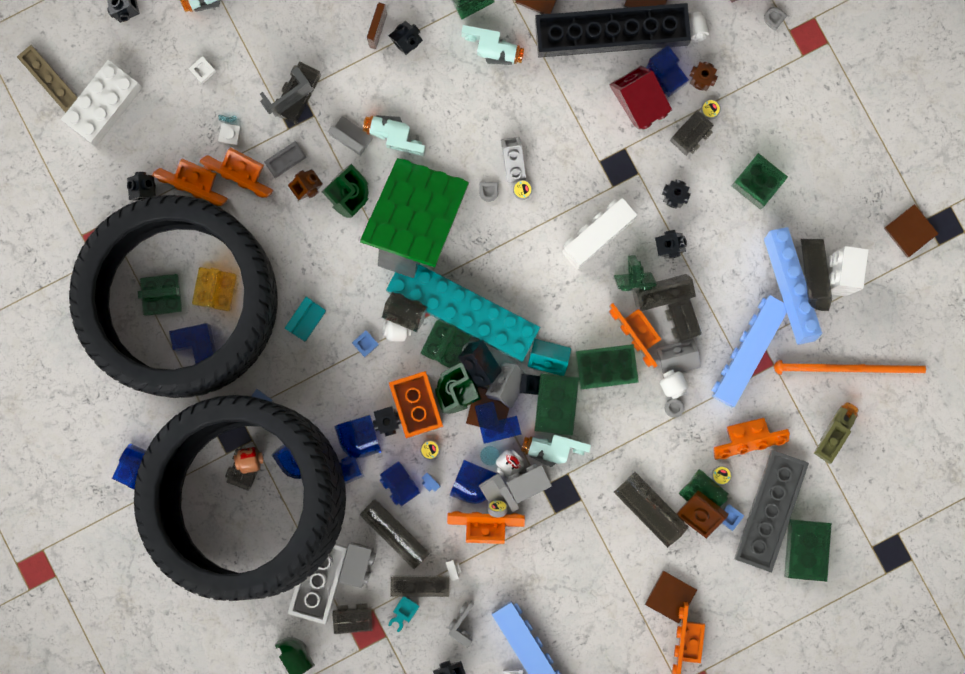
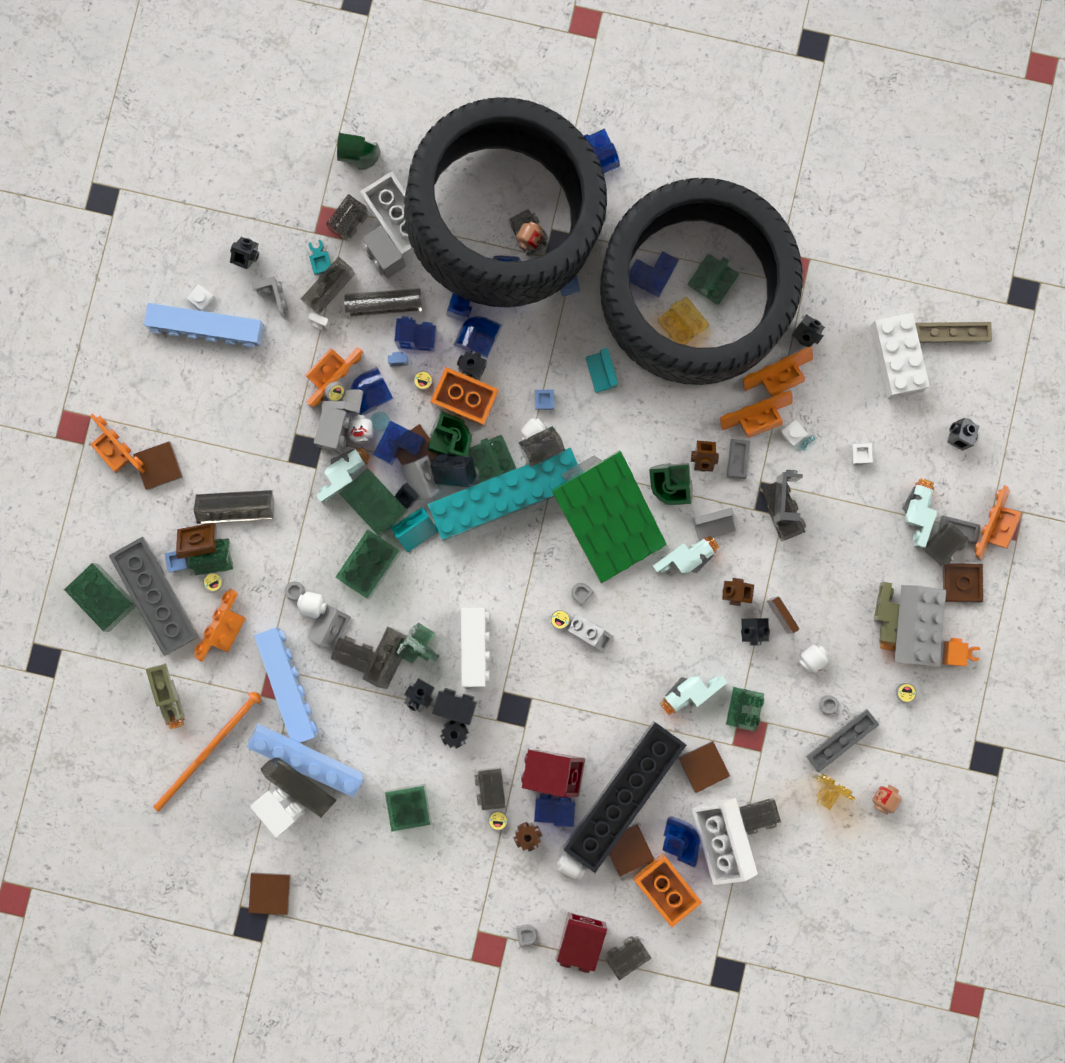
camera: 130 degrees right, 0 degrees up
(388, 74) = (737, 592): none -> reddish brown brick
(640, 331) = (372, 614): orange bracket -> none
(655, 209) = (454, 706): none -> black brick

